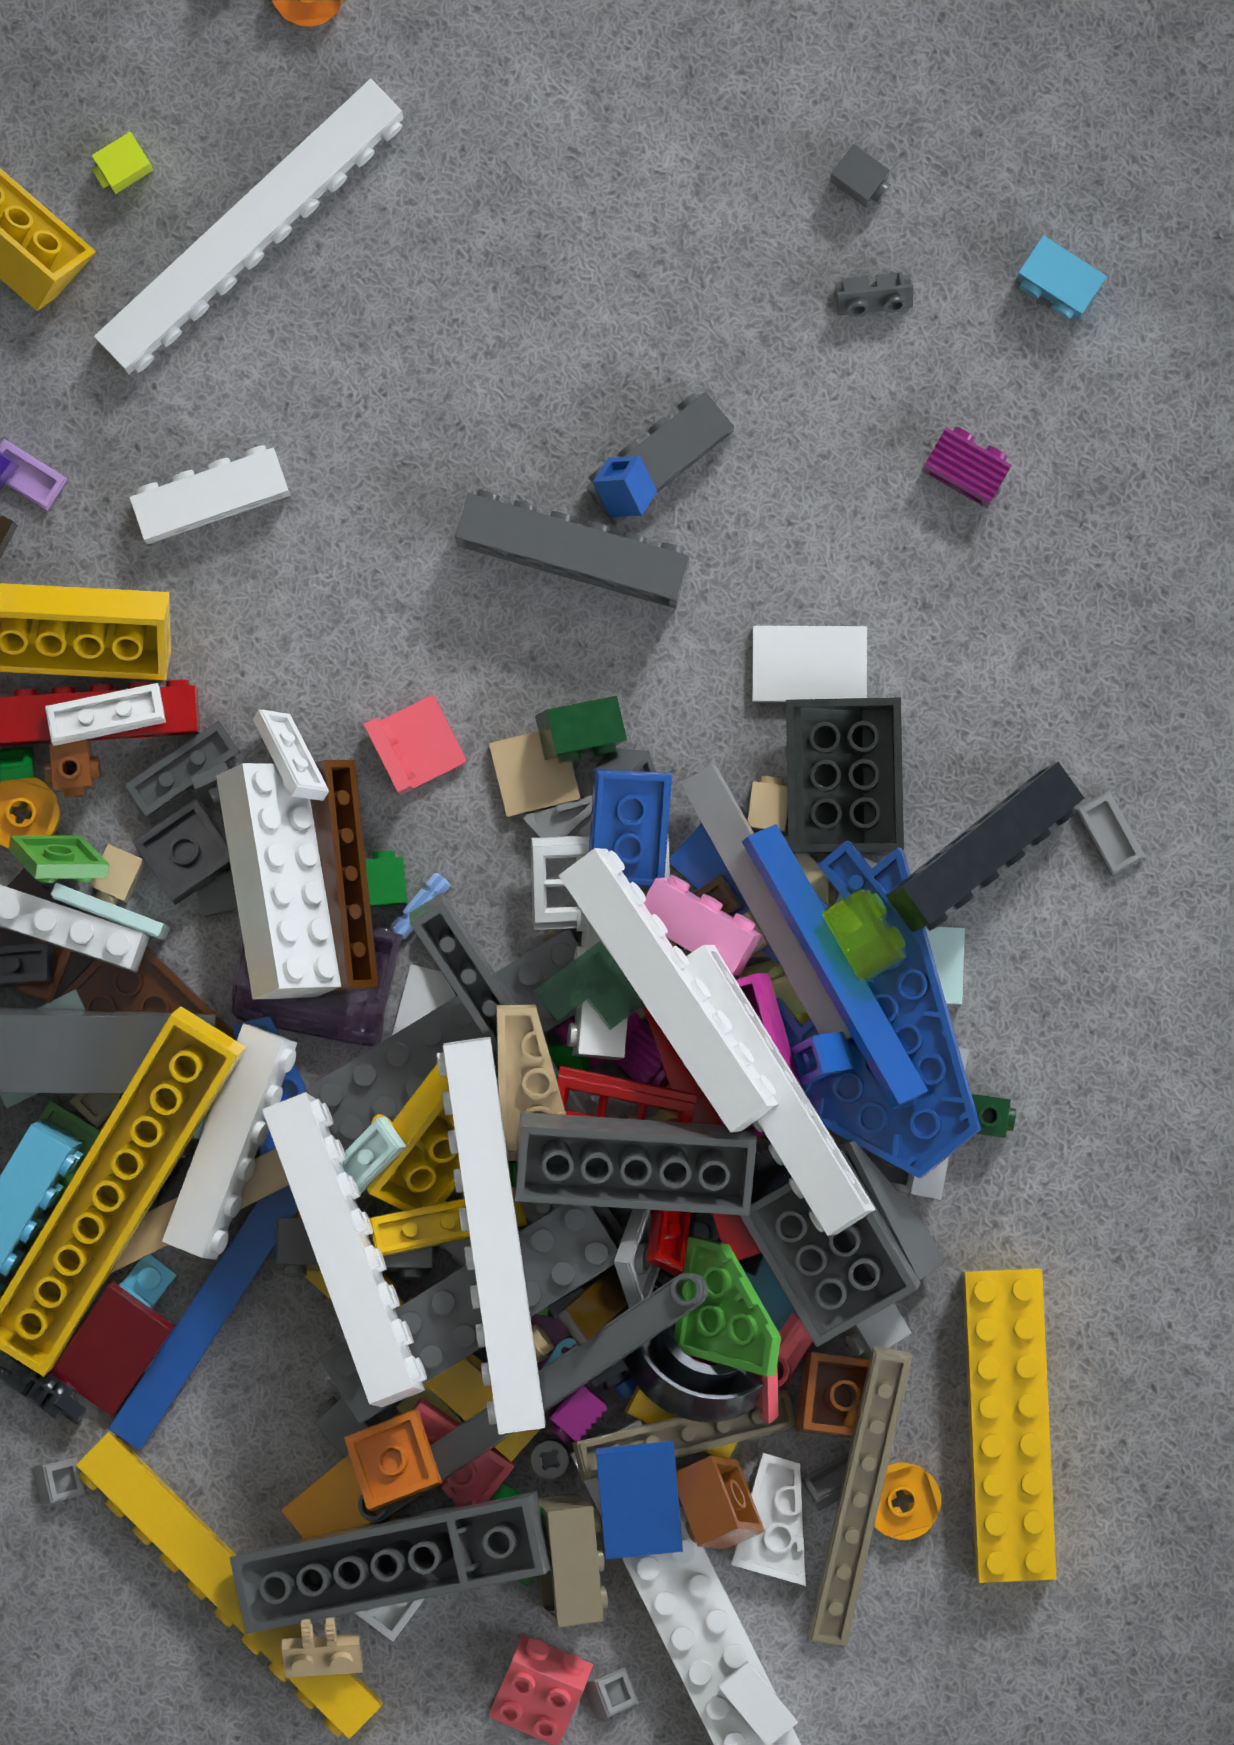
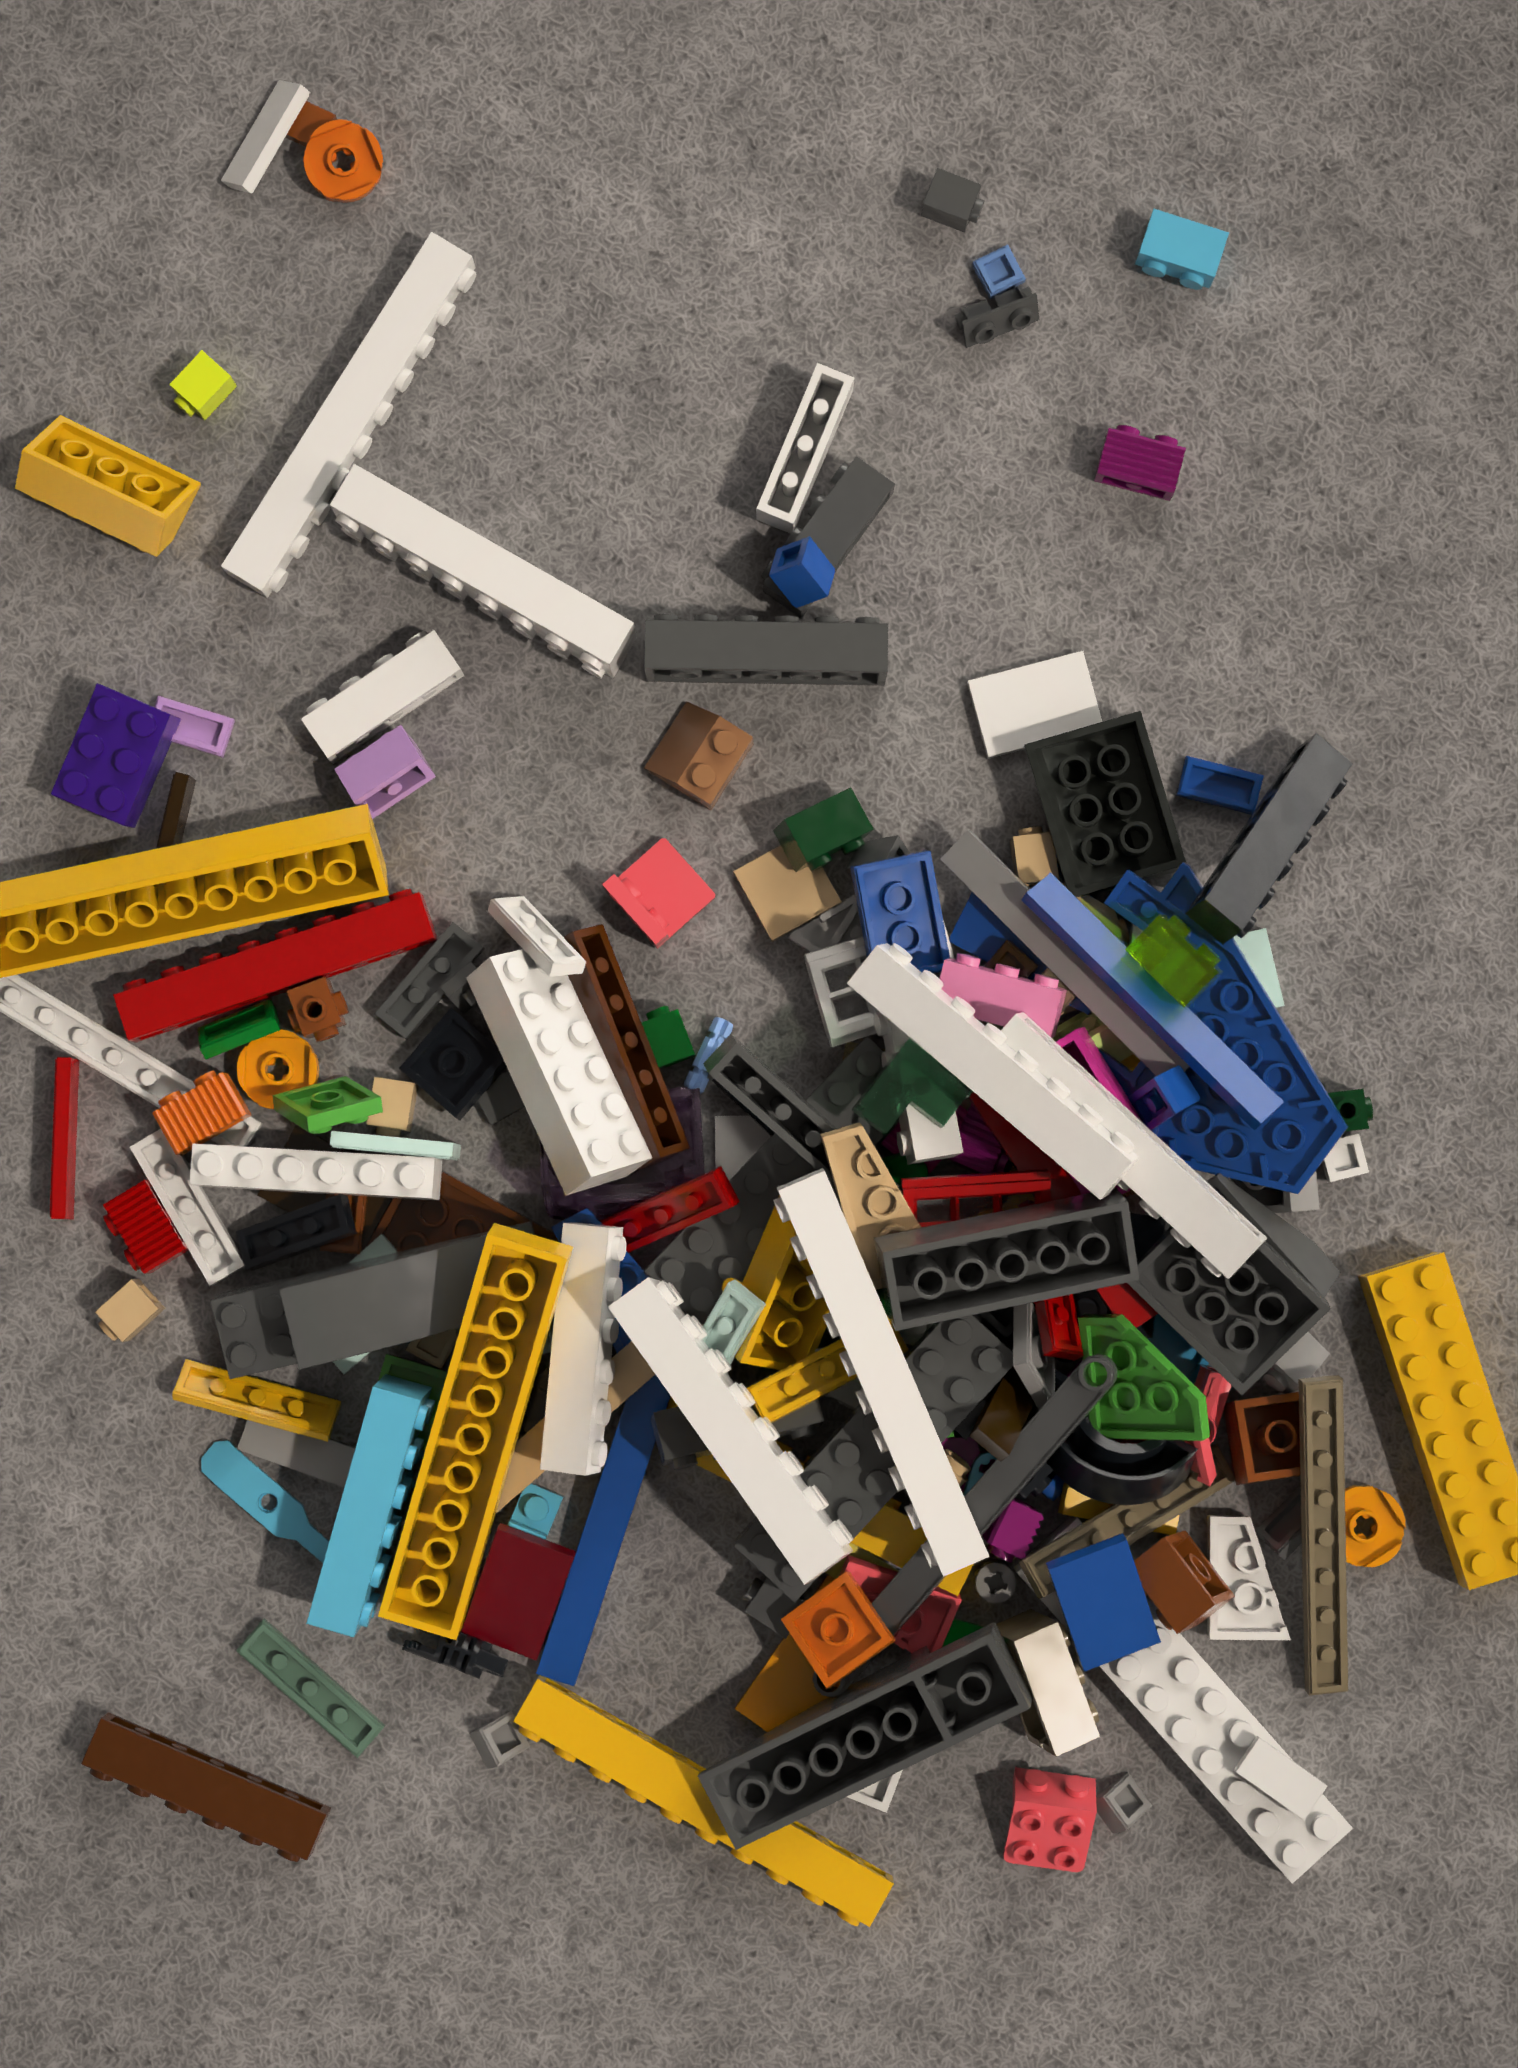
camera: 15 degrees left, 0 degrees up
(105, 714) = (336, 945): white tile -> none
(193, 566) = (385, 771): none -> lavender brick
(321, 1654) = (820, 1848): tan hinge -> none
(333, 406) = (484, 572): none -> white brick
(348, 1038) = (674, 1209): none -> red tile
(487, 627) = (700, 754): none -> medium nougat slope
(660, 371) = (805, 448): none -> white brick
(886, 253) = (998, 271): none -> medium blue tile
(959, 784) = (1219, 785): none -> blue tile
(977, 1159) = (1345, 1159): none -> white plate
(1110, 833) = (1385, 793): light grey tile -> none

